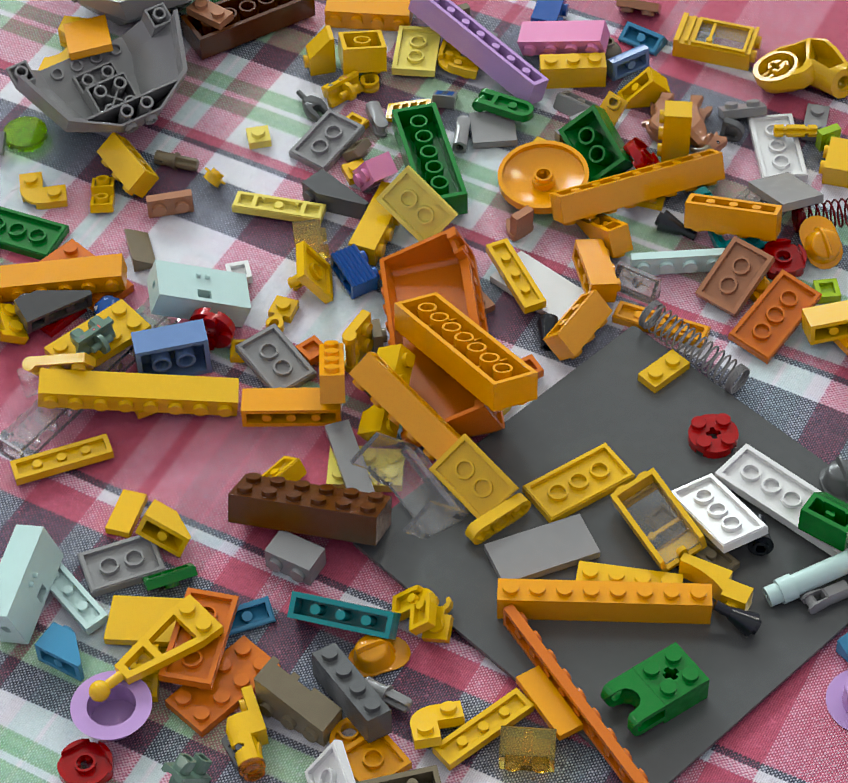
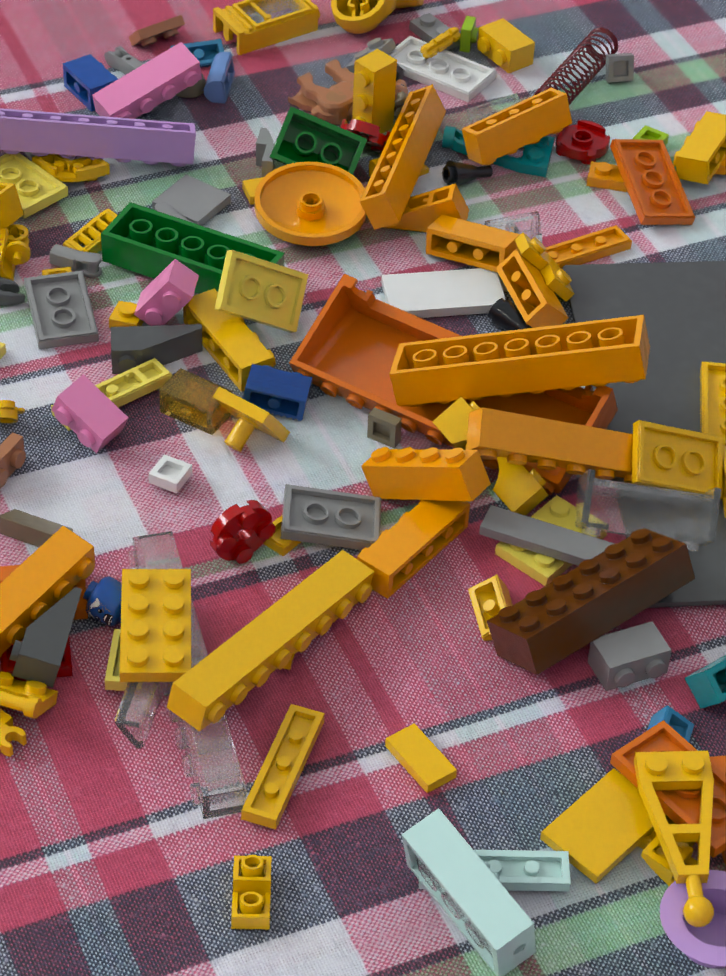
camera: 55 degrees left, 5 degrees down
(60, 650) = (583, 922): dark azure slope -> none
(69, 361) = (172, 669): yellow plate -> none
(96, 338) = (168, 627): sand green hips -> none
(120, 564) = (493, 801): light grey tile -> none
(164, 528) = (488, 732): yellow slope -> none
(169, 578) = (558, 770): green plate -> none
(173, 349) = (239, 579): medium blue brick -> none
(182, 288) = (182, 508): light aqua brick -> none
(240, 208) = (89, 414): none -> bright pink brick
(281, 311) = (261, 475): yellow plate -> none
(310, 349) = (348, 480): orange plate -> none
(357, 150) = (104, 295): dark tan plate -> none
(357, 339) = (384, 427): yellow plate -> none
(445, 99) = (114, 202): light grey slope -> none
(503, 105) = (180, 172): green plate -> none
(515, 276) = (421, 292): yellow plate -> none
(520, 223) = (346, 261): nougat tile -> none
(571, 103) = (231, 140): light grey slope -> none
(574, 70) = (195, 104): yellow brick -> none
(591, 10) = (122, 60): none -> light grey bar
(614, 106) = (275, 111): yellow hips -> none
(614, 316) = (553, 275): none -> yellow plate
(644, 89) = (272, 89): yellow slope -> none
(663, 371) = (646, 279): yellow plate -> none
(676, 261) = (519, 191): light aqua plate -> none
(733, 374) = (705, 234): light grey piece -> none
(735, 276) = (583, 172): nougat plate -> none
(786, 191) = (514, 86): light grey tile -> none
(821, 242) = (595, 105): light orange piece -> none

